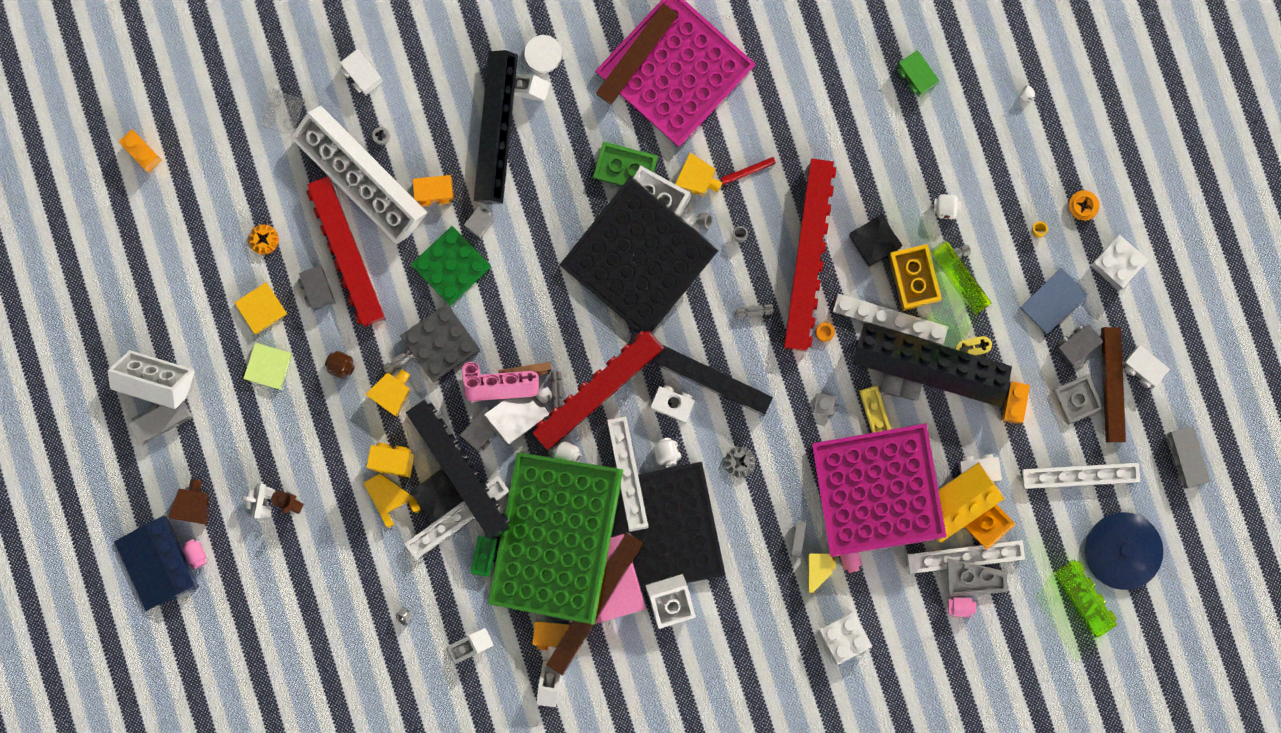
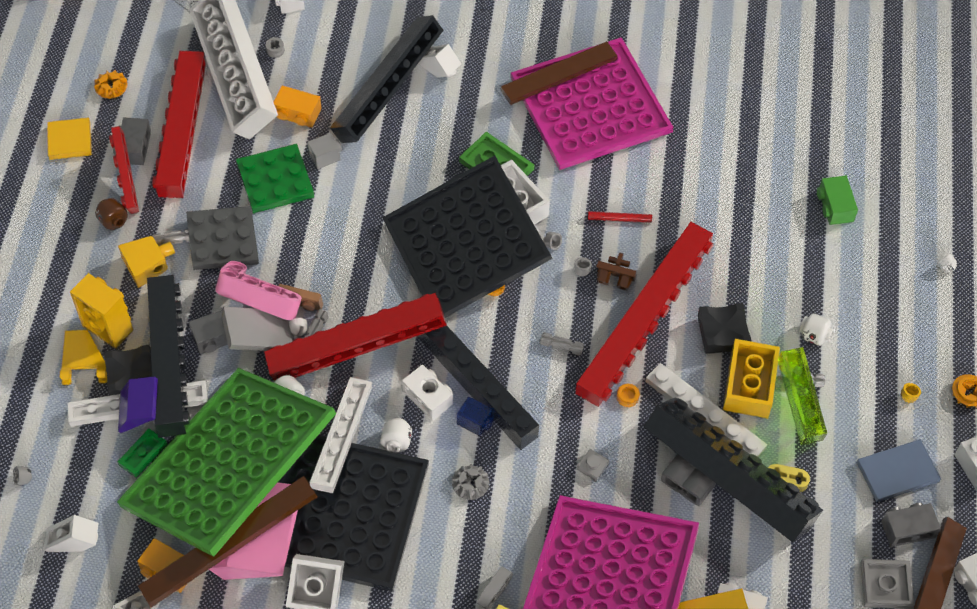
camera: 20 degrees right, 25 degrees down
(268, 366) = (42, 189): yellowish green tile -> none
(335, 330) = (121, 161): none -> red plate
(463, 525) = (137, 403): none -> dark purple slope
(543, 53) = (469, 43): white tile -> none
(697, 176) = (566, 198): yellow torso -> none
(719, 408) = (475, 416): none -> clear blue brick
(777, 227) = (625, 275): none -> reddish brown hips
(874, 409) = (647, 490): light yellow tile -> none
(1015, 403) = (811, 552): light orange brick -> none

